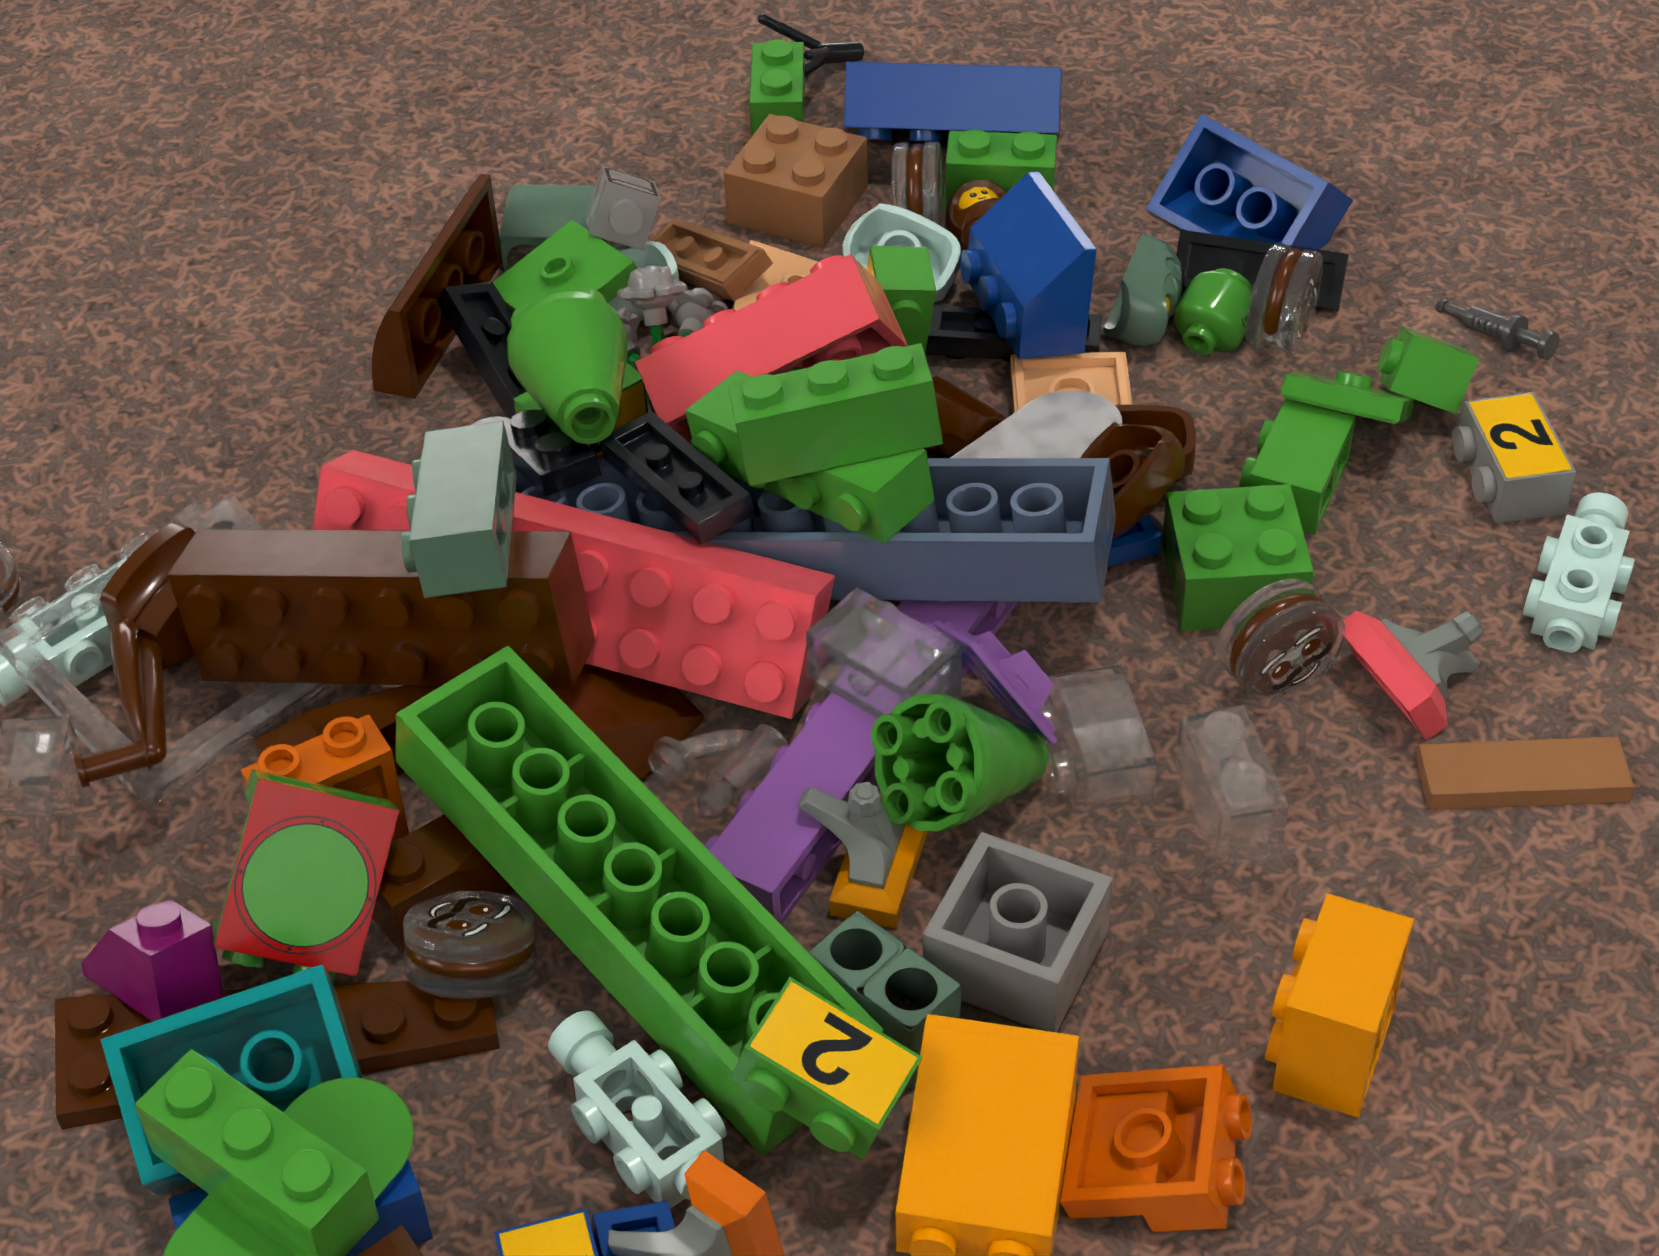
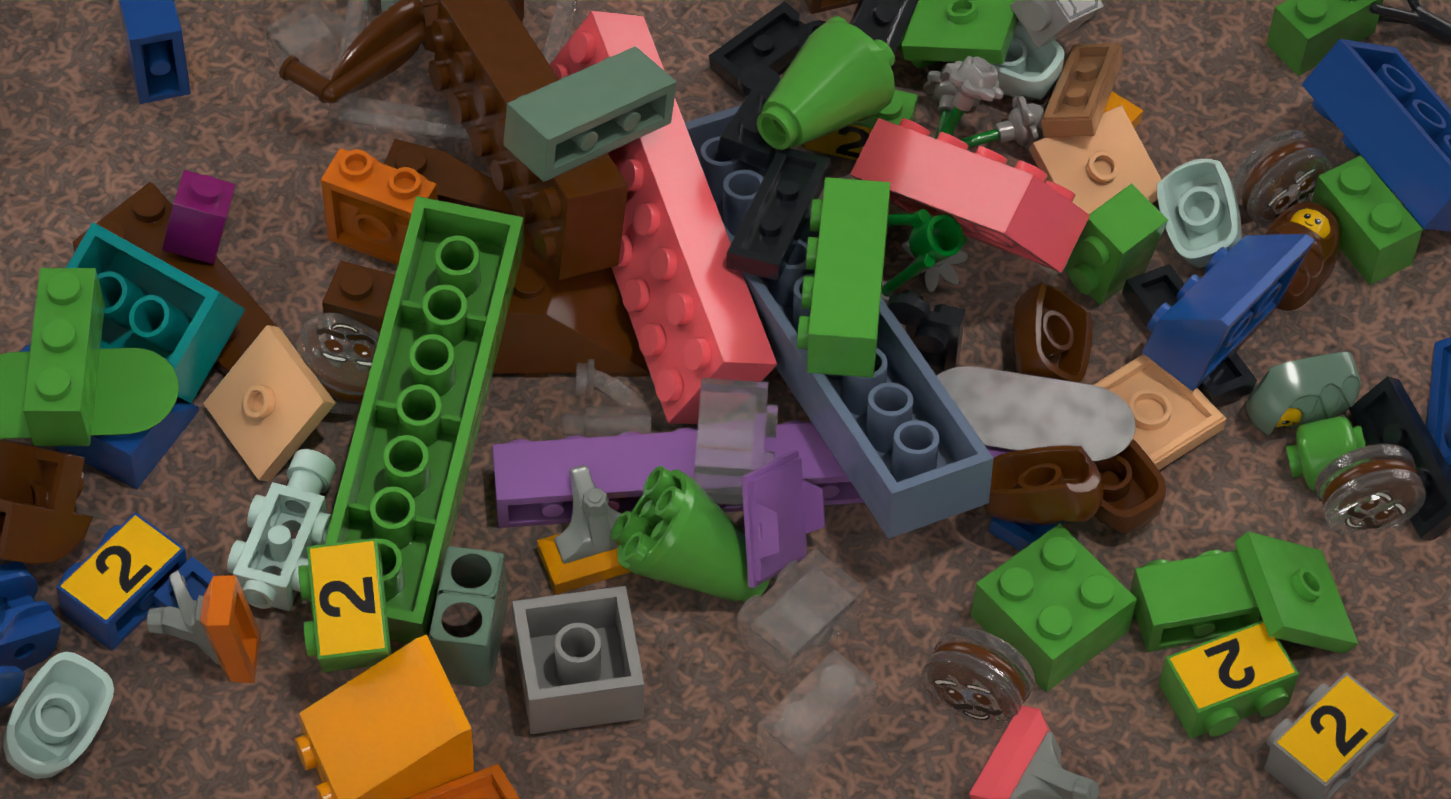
camera: 50 degrees right, 10 degrees up
(304, 875) = (301, 235): panel -> none
(420, 414) = (767, 42): none -> black hinge
(462, 1032) = (269, 403): none -> light nougat plate
(796, 180) = (1233, 91): medium nougat brick -> none
(835, 414) = (848, 264): bright green brick -> none
(1402, 488) = (1228, 680): none -> brick
(1426, 369) = (1371, 628): bright green brick -> none

